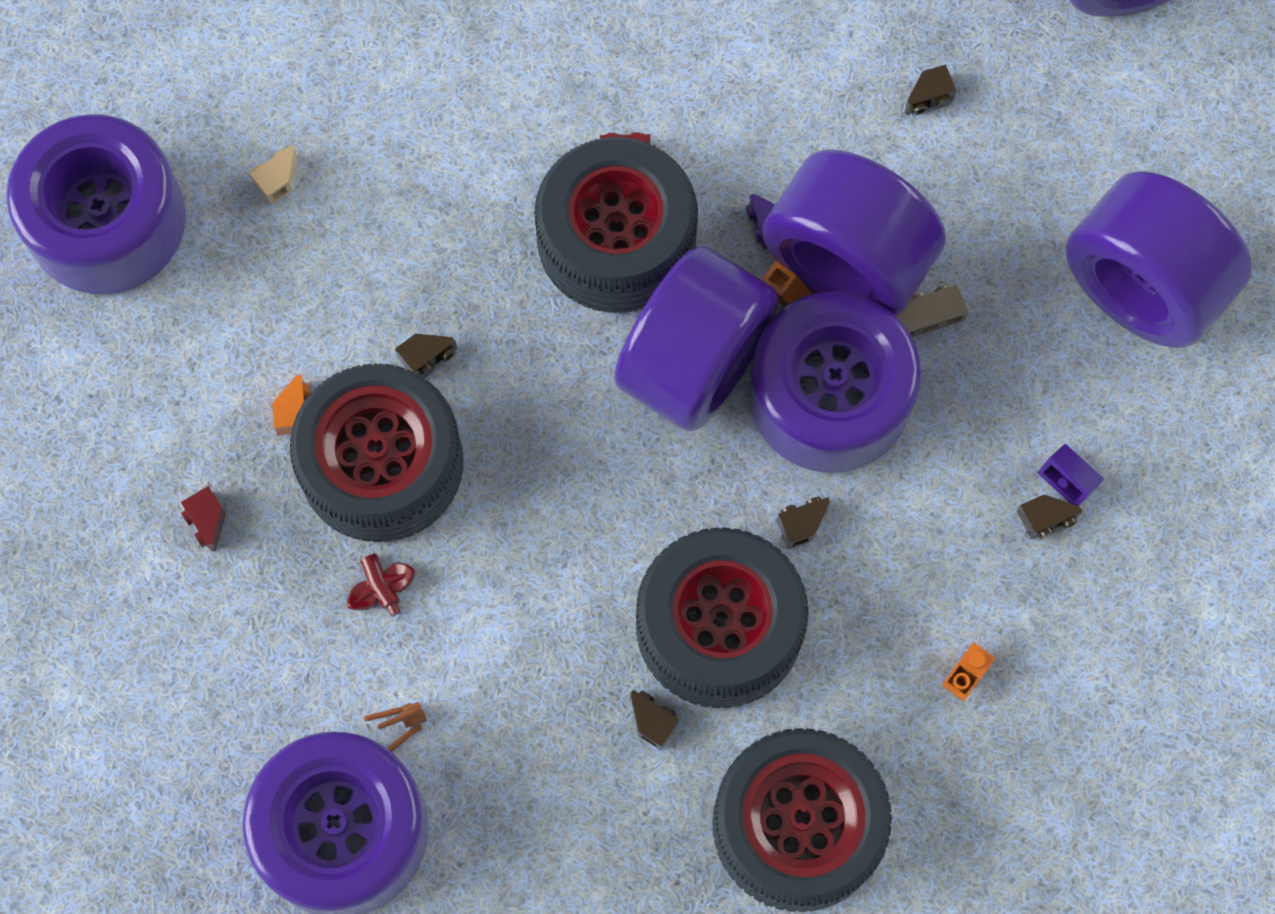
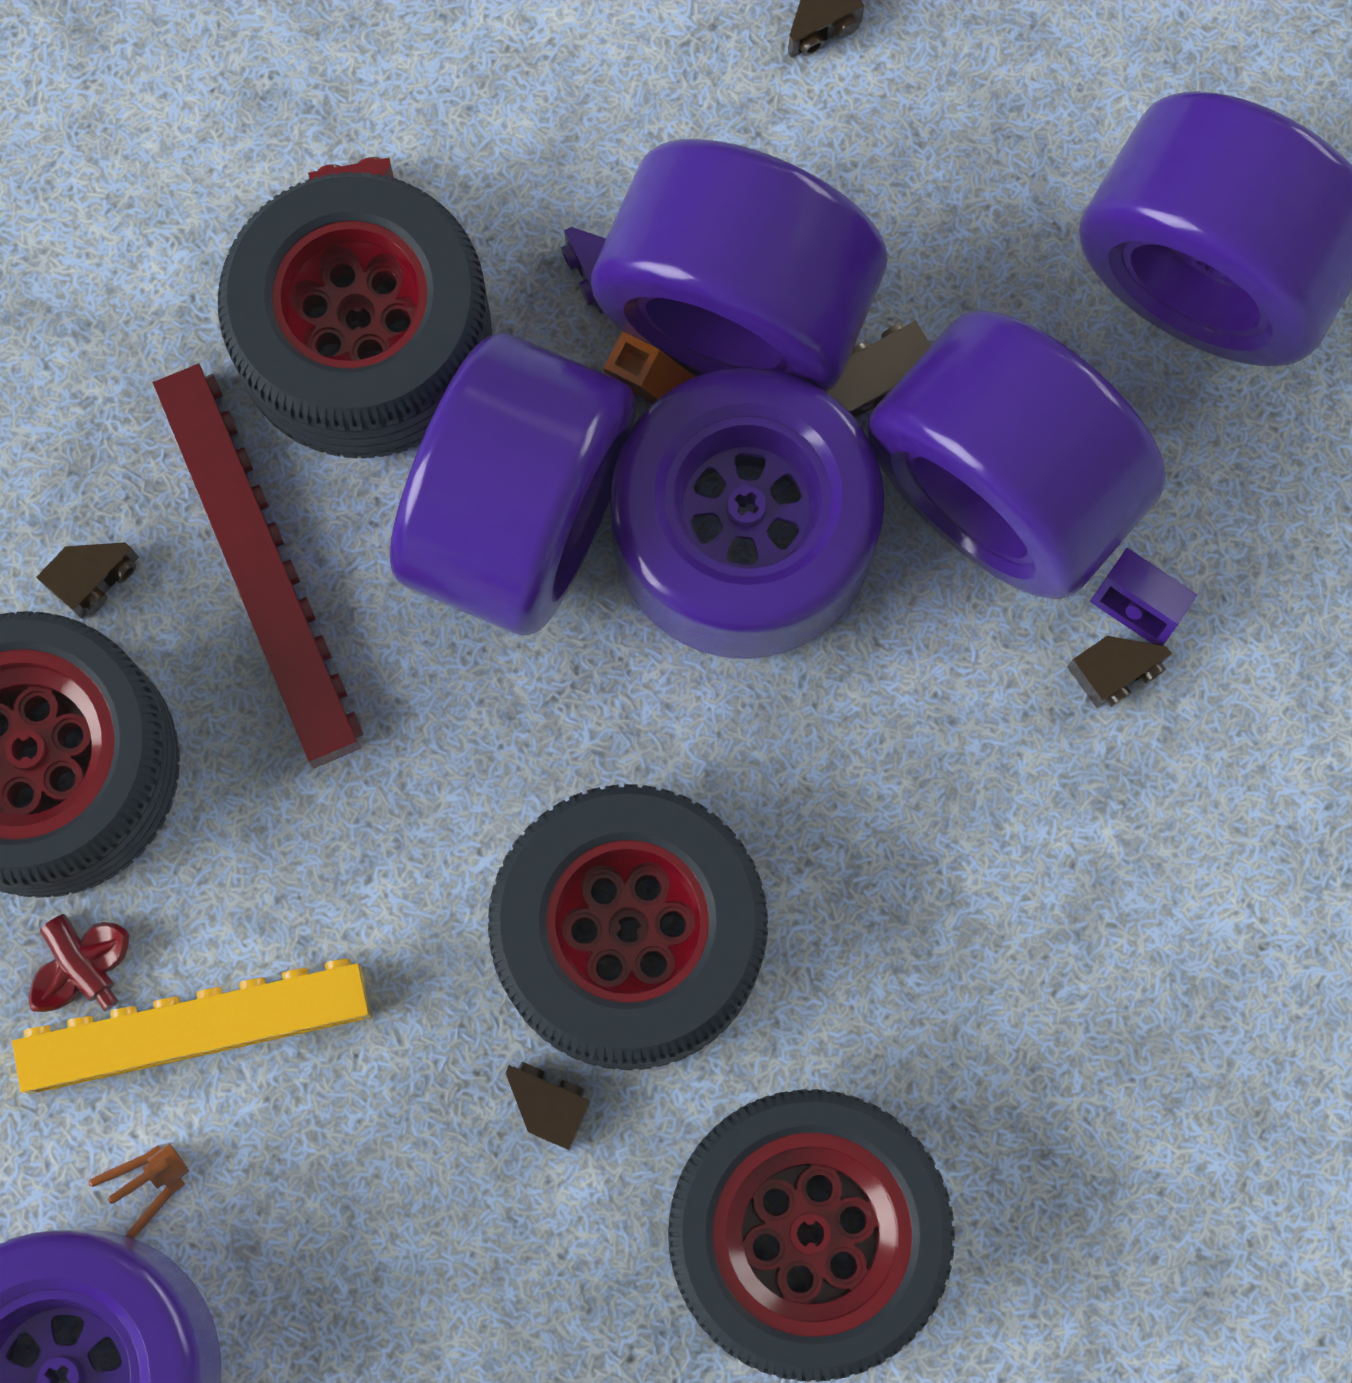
camera: 10 degrees left, 5 degrees up
(443, 634) = (192, 1027): none -> yellow brick
(529, 367) = (257, 566): none -> dark red brick
(801, 523) = (732, 748): dark brown slope -> none
(968, 671) = (1033, 942): orange slope -> none
(1005, 371) = (1017, 453): none -> dark purple wheel

